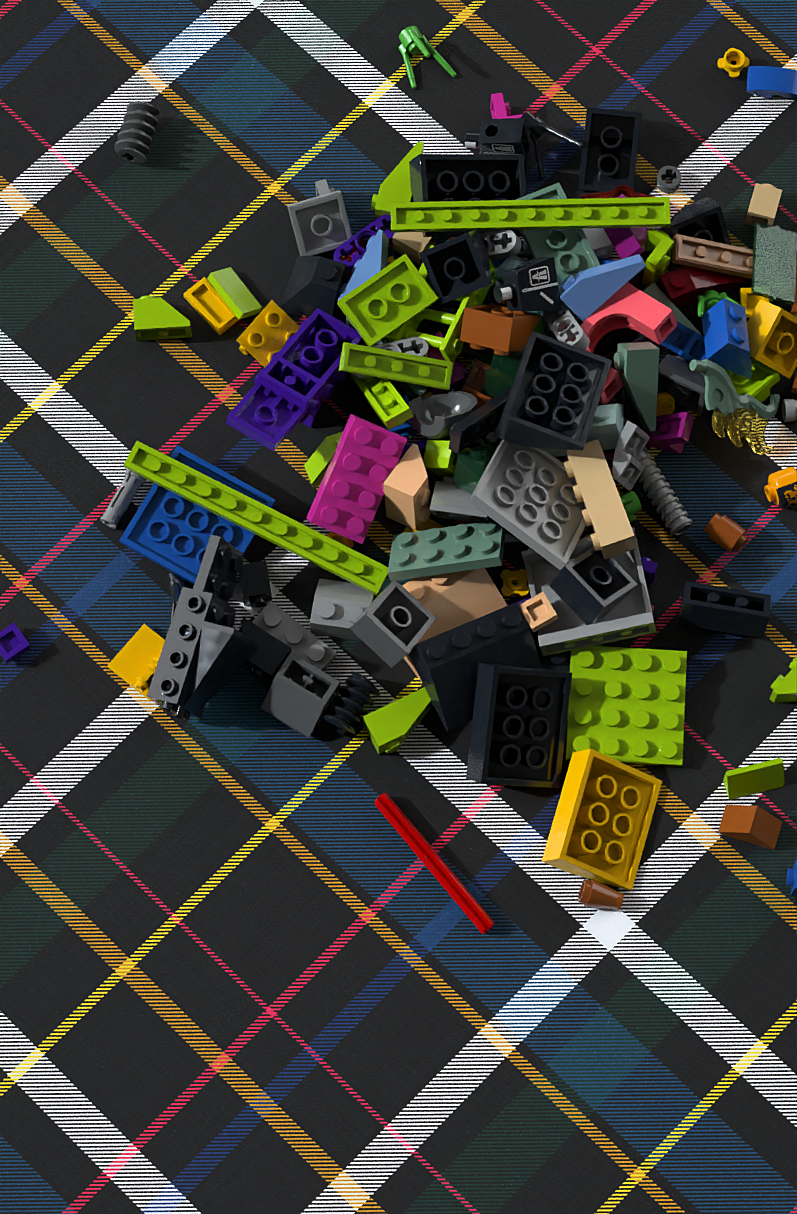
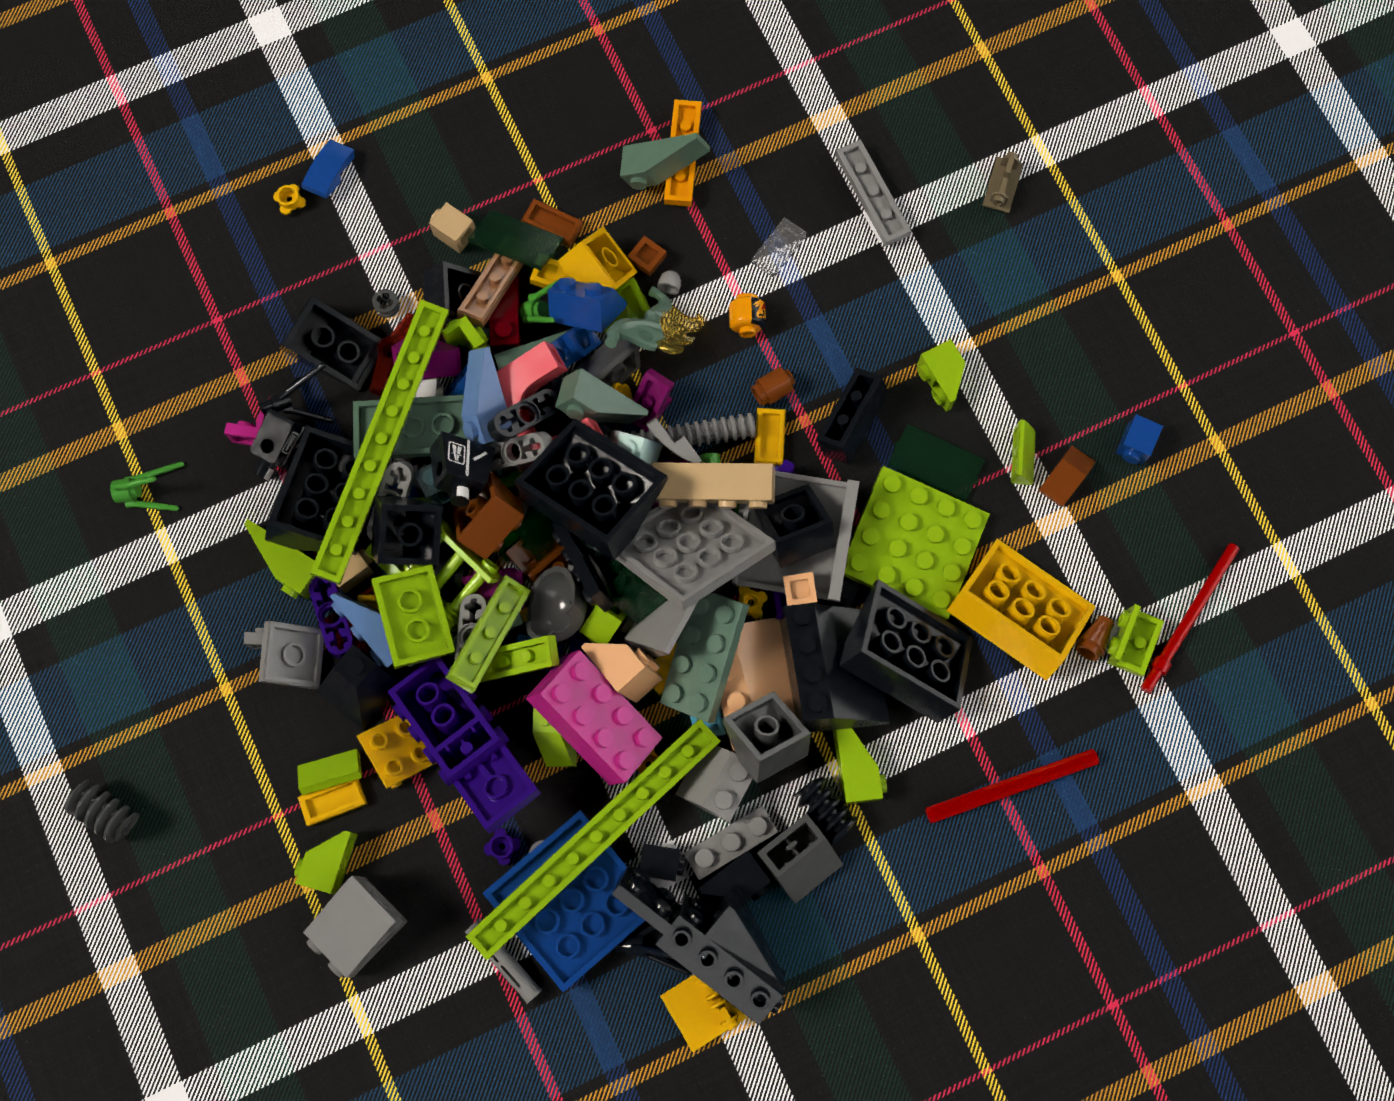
camera: 70 degrees left, 5 degrees up
(115, 359) = (353, 926): none -> light grey slope
(222, 446) = (501, 837): none -> dark purple plate
(579, 315) = (518, 424): none -> black beam
(598, 963) = (1161, 664): none -> red bar
(610, 929) = (1135, 641): none -> lime bracket
(678, 548) = (770, 436): none -> yellow tile
(714, 704) = (936, 462): none -> clear green piece

